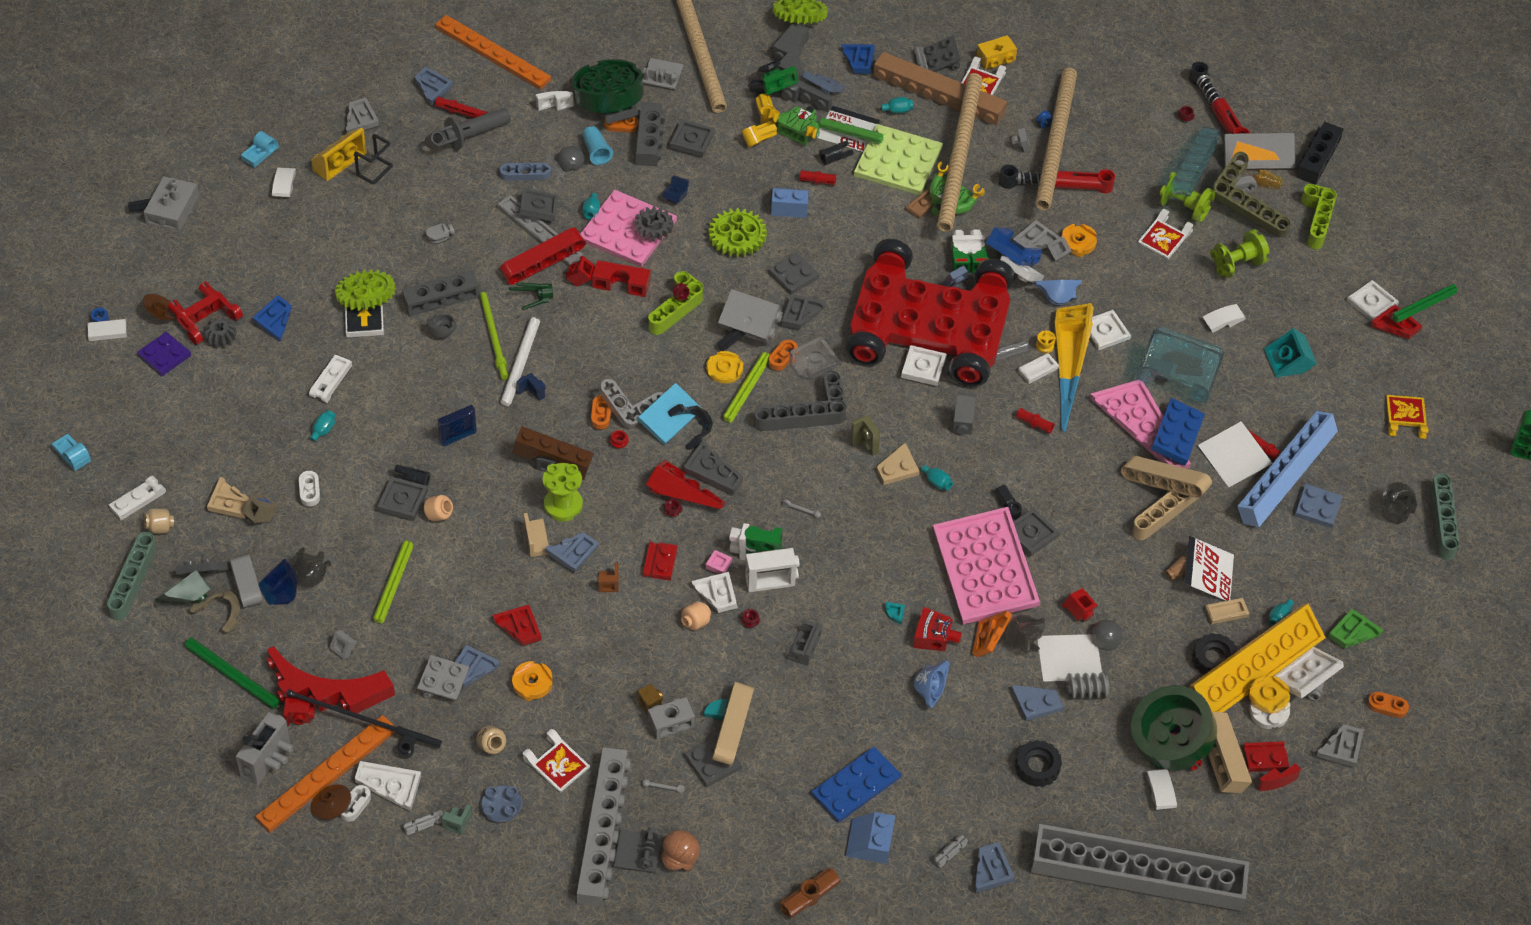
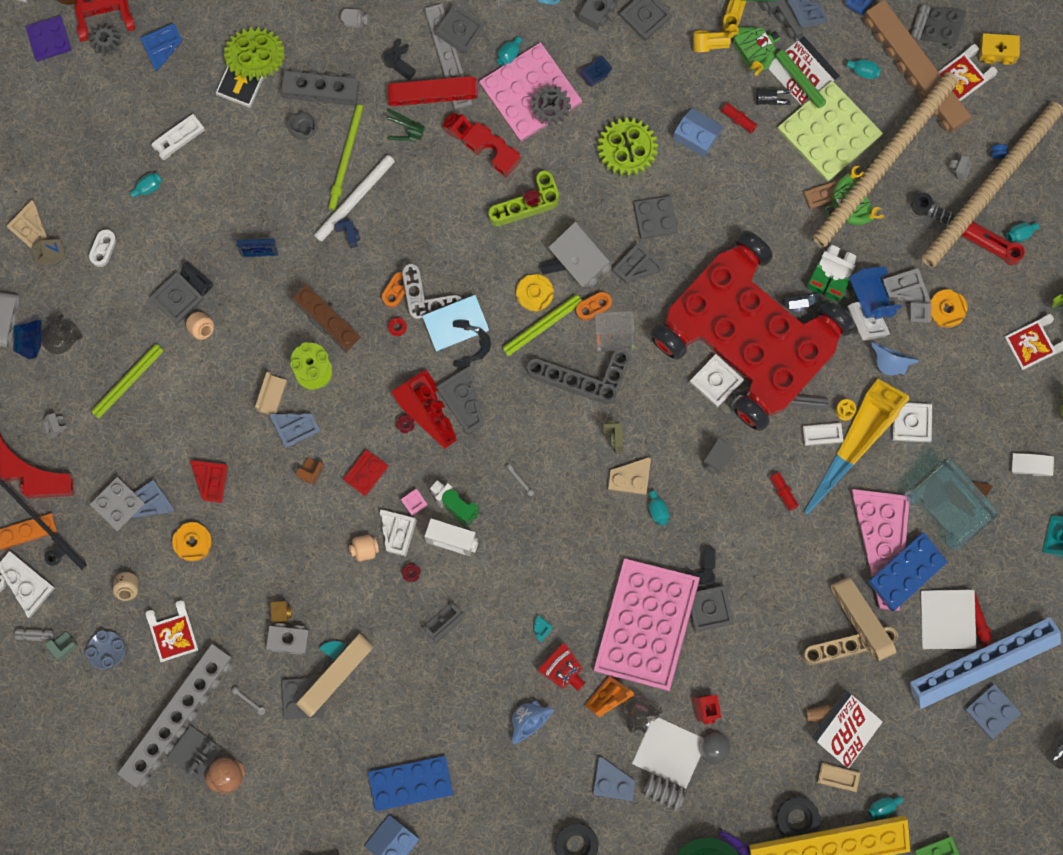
camera: 30 degrees right, 25 degrees up
(491, 249) = (392, 57): none -> black bar
(1101, 163) = (1021, 232): none -> teal plant

